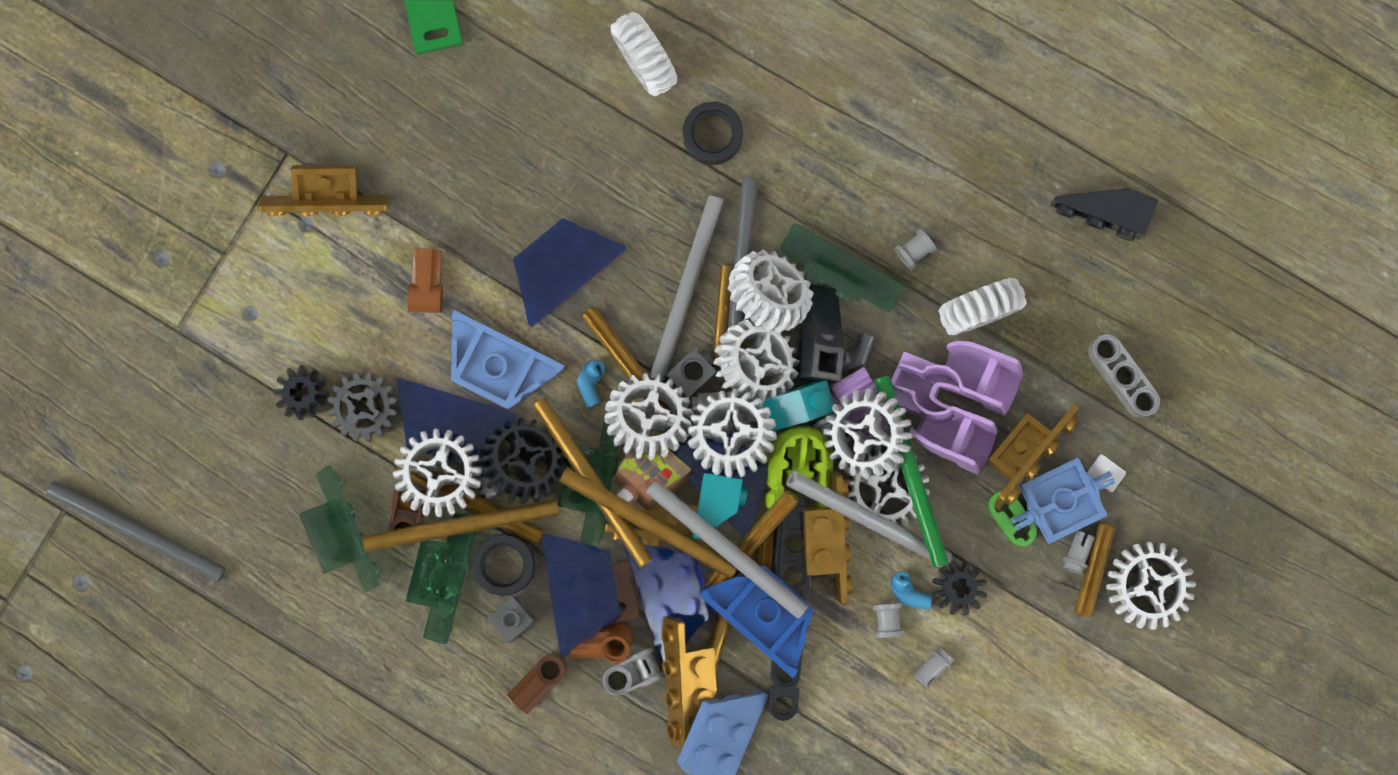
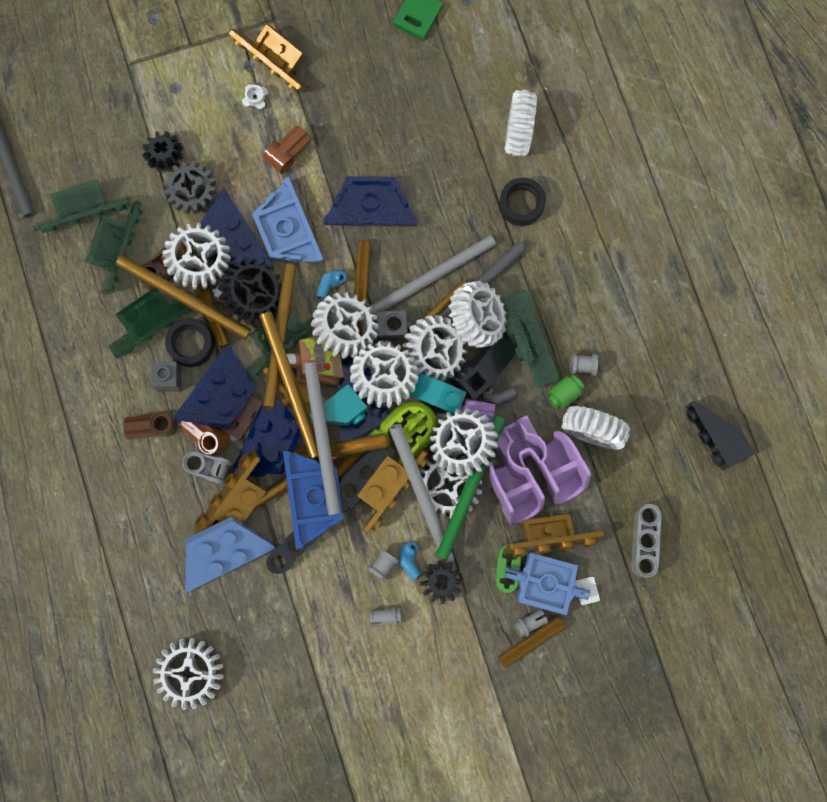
camera: 35 degrees right, 5 degrees down
(264, 520) = (79, 202): none -> clear green bracket
(333, 252) = (260, 92): none -> white plate
(921, 294) = (565, 392): none -> bright green brick
(1144, 572) = (554, 691): white gear -> none

